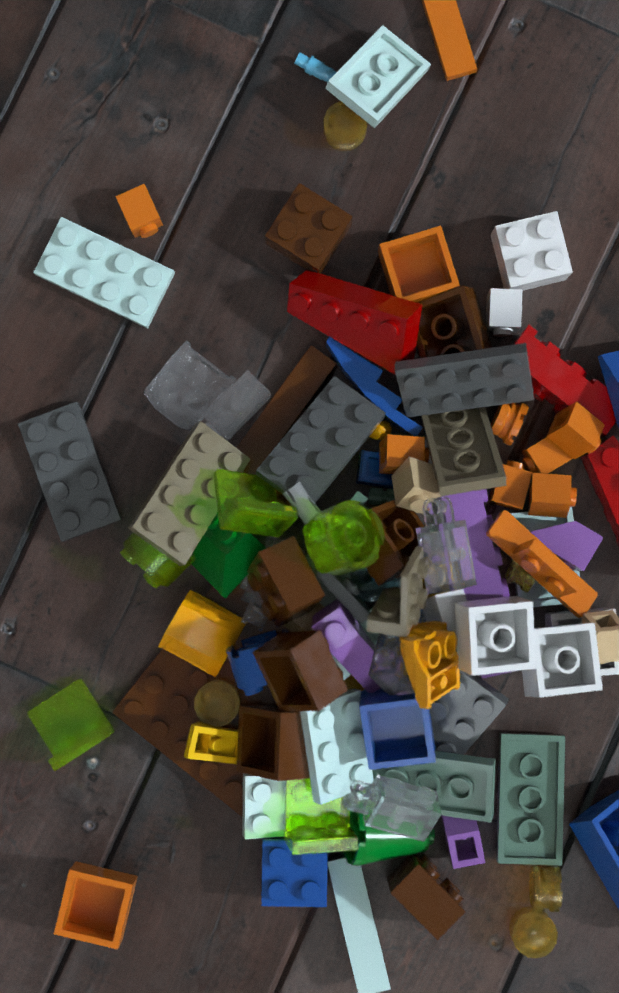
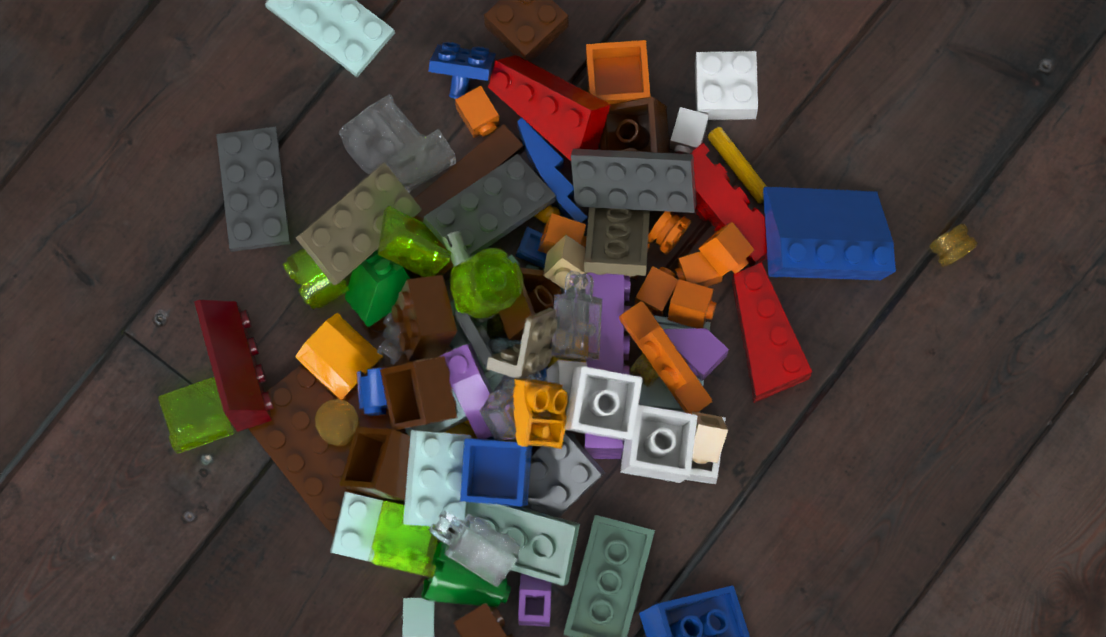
camera: 15 degrees right, 10 degrees down
(95, 666) = (234, 363): none -> dark red slope
(95, 905) = (178, 582): orange piece -> none
(212, 743) = (322, 455): yellow slope -> none
(254, 294) = (462, 65): none -> blue plate
(282, 339) = (477, 112): none -> orange brick
(291, 878) = (370, 595): blue piece -> none
(561, 333) = (737, 163): none -> yellow axle

